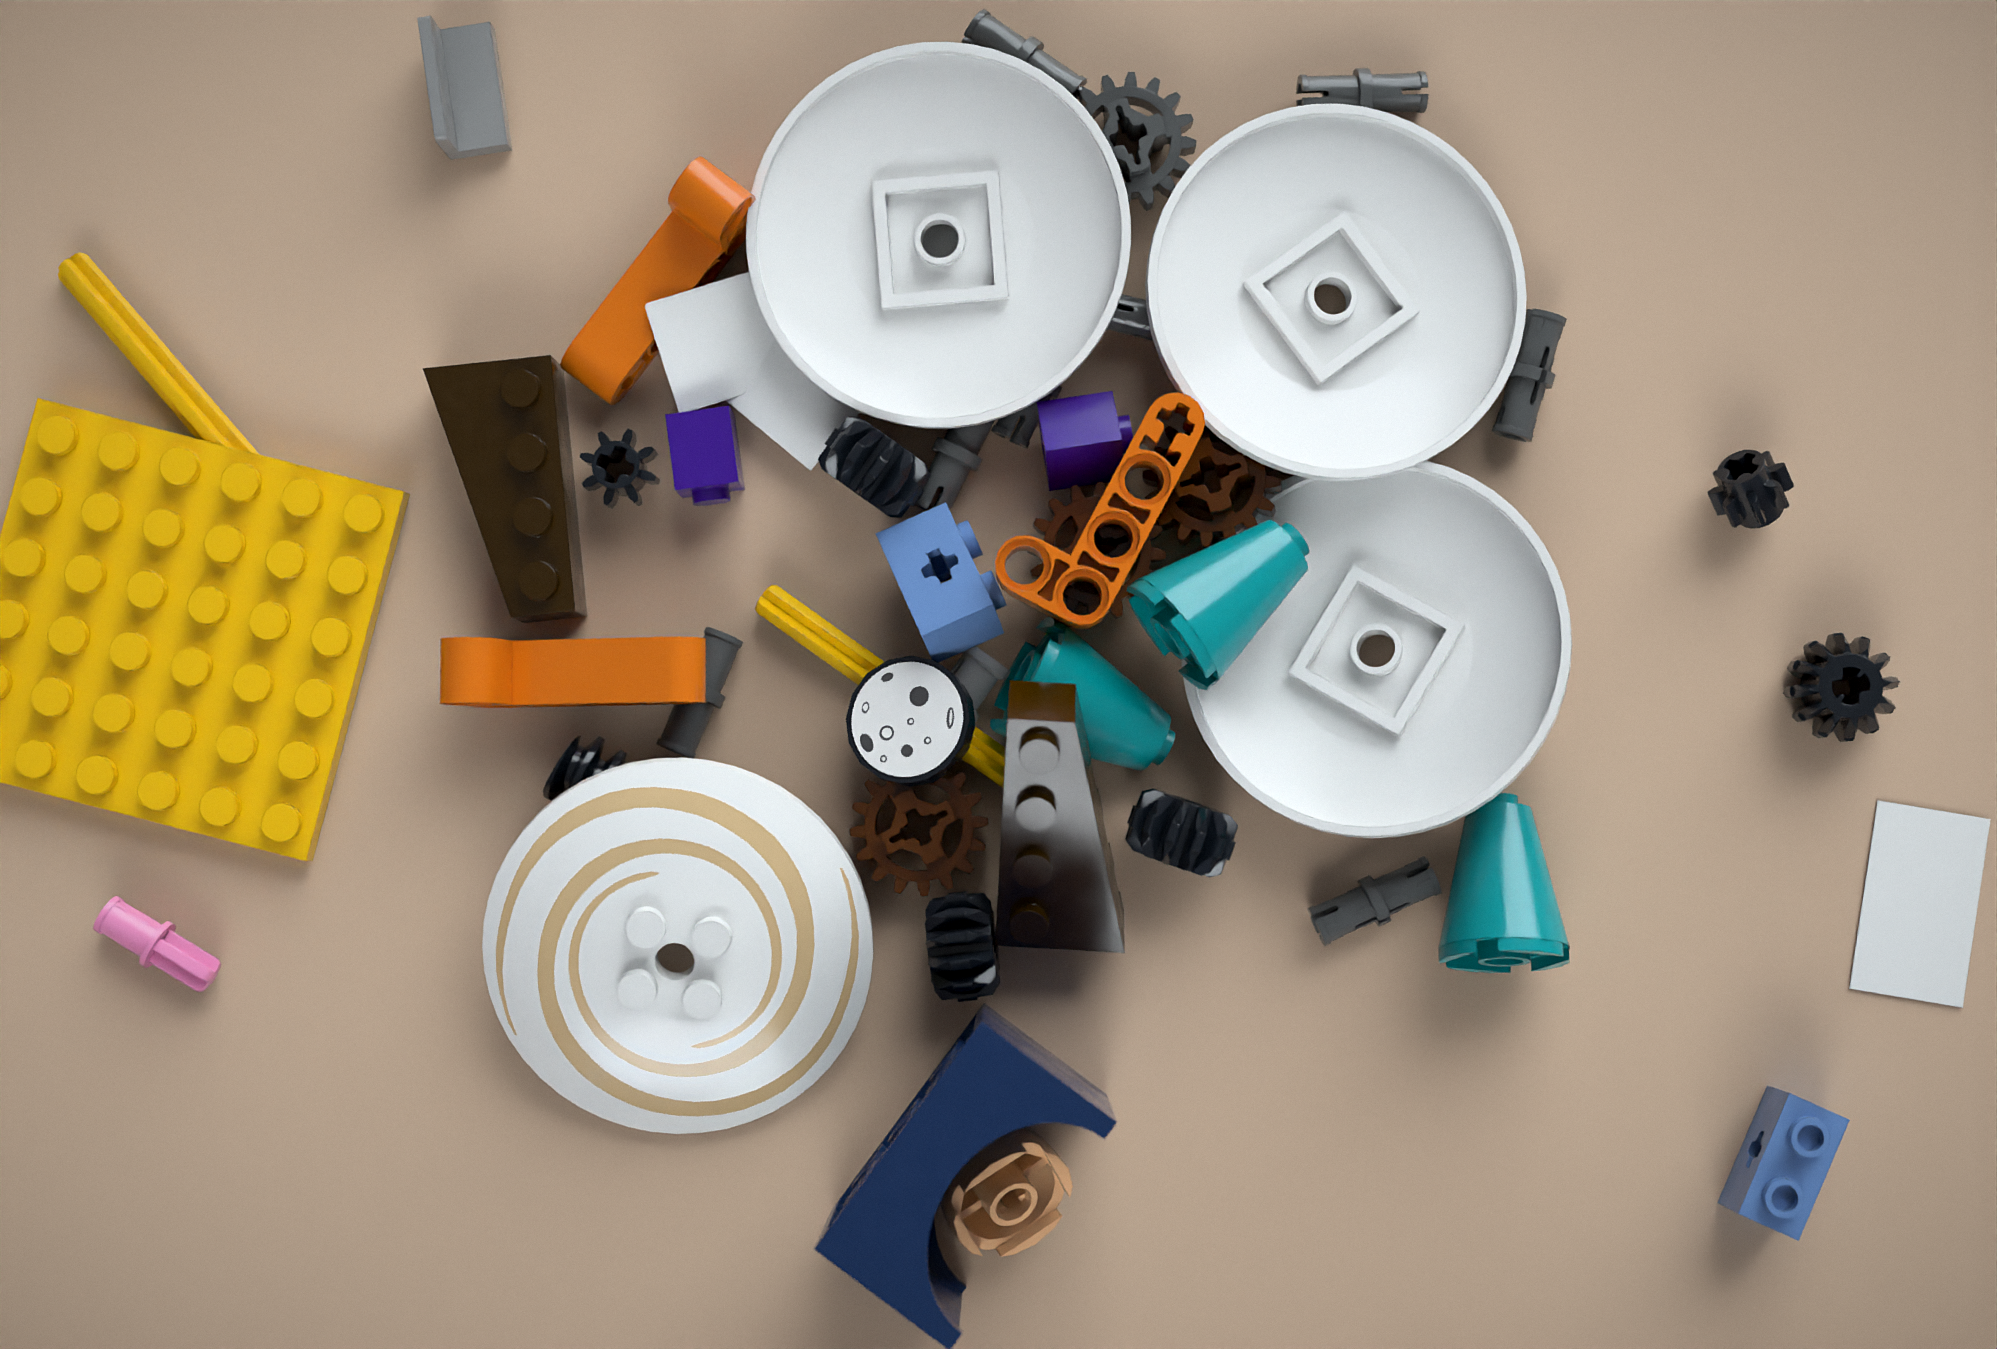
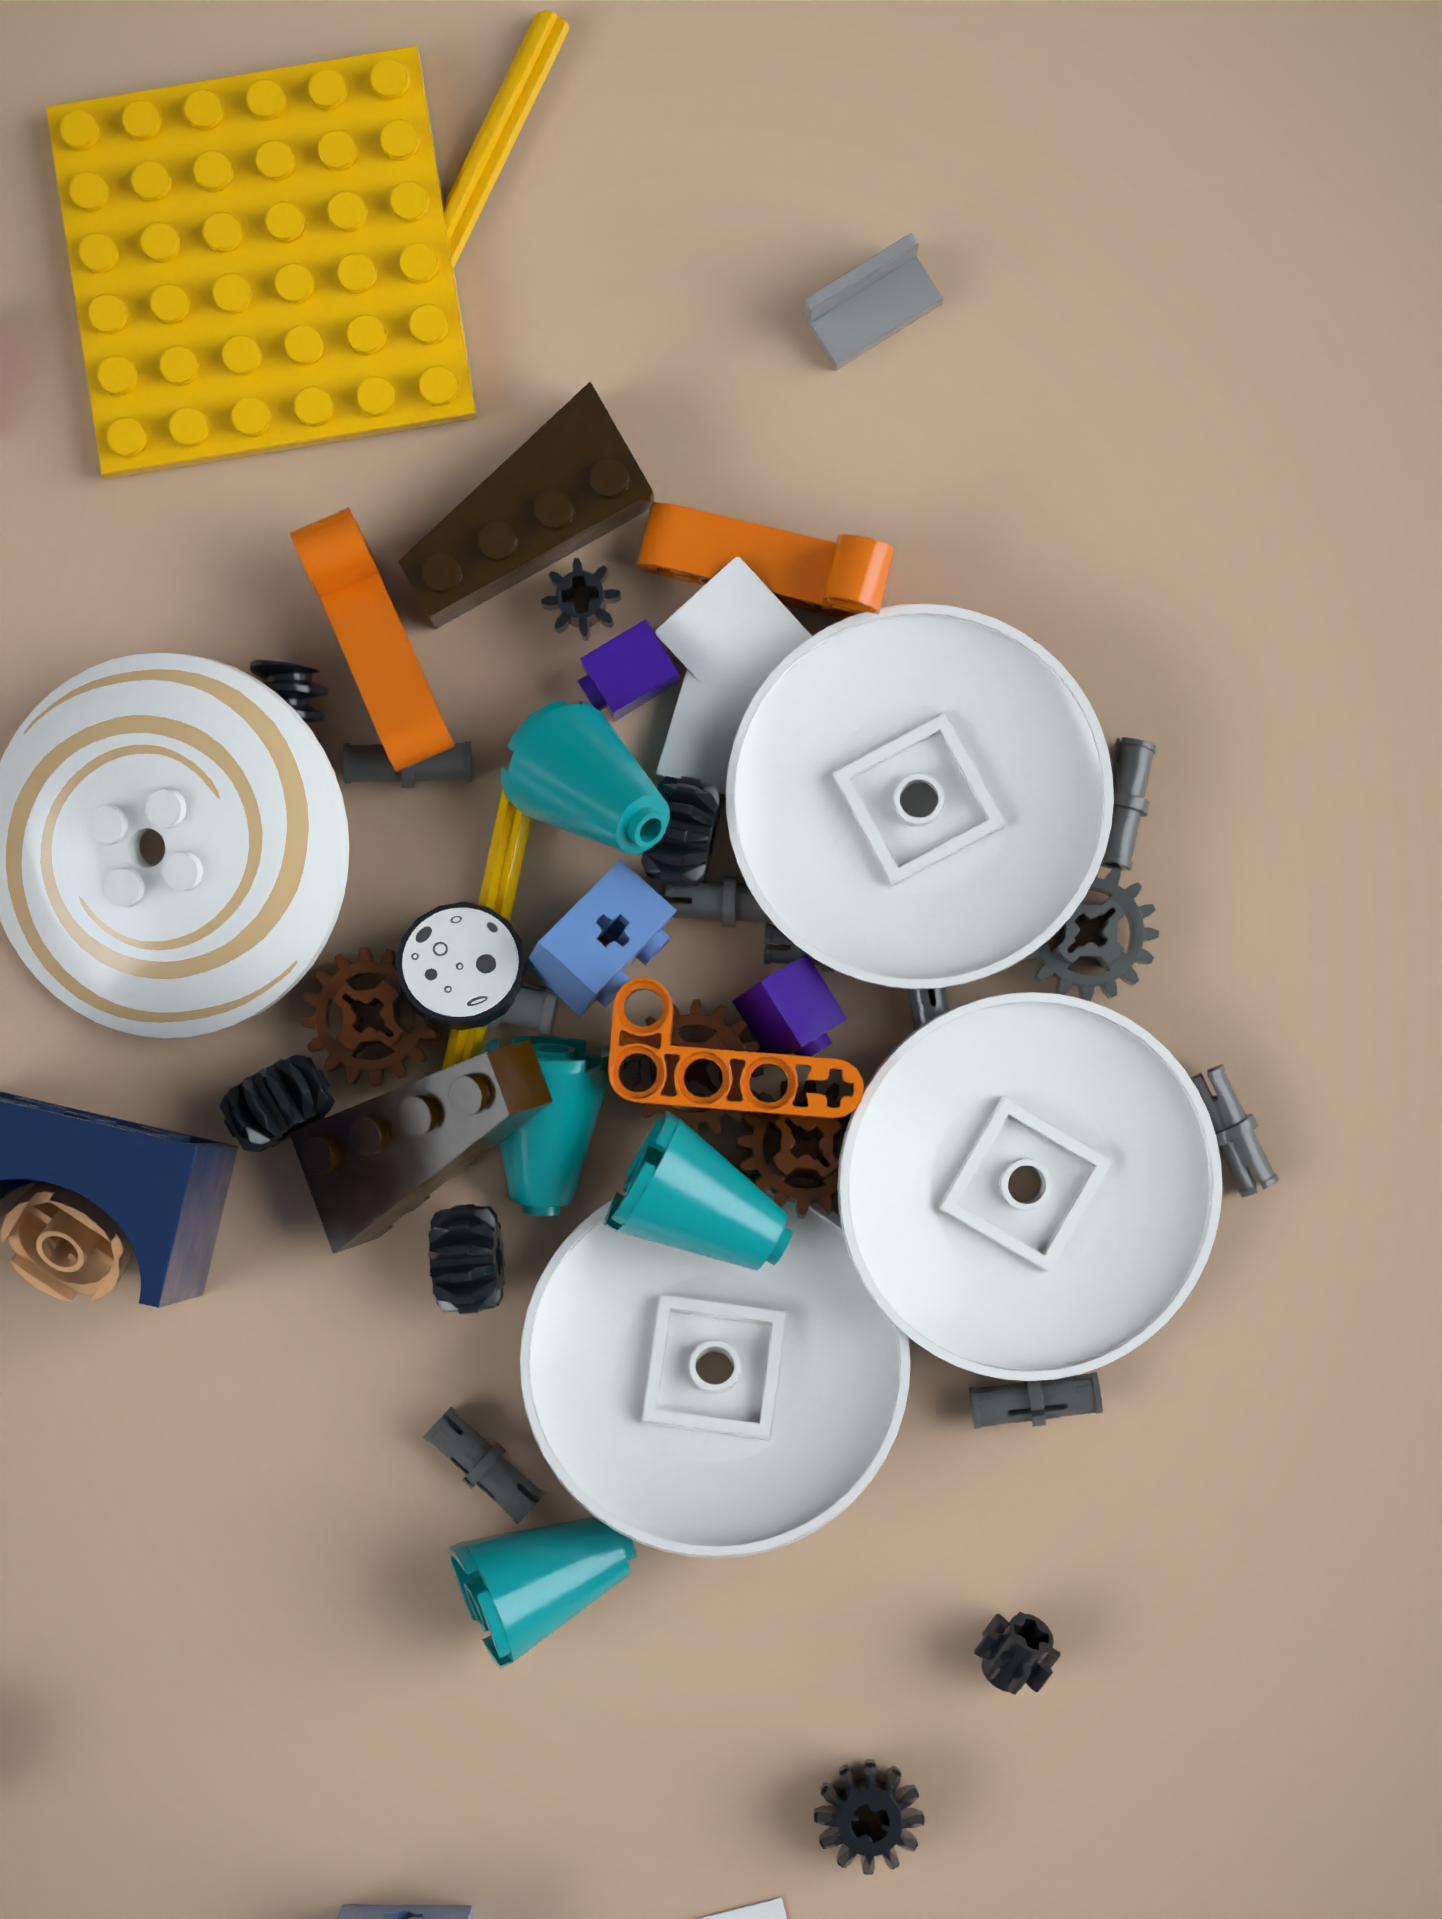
camera: 65 degrees right, 0 degrees up
(790, 531) = (583, 779): none -> teal cone

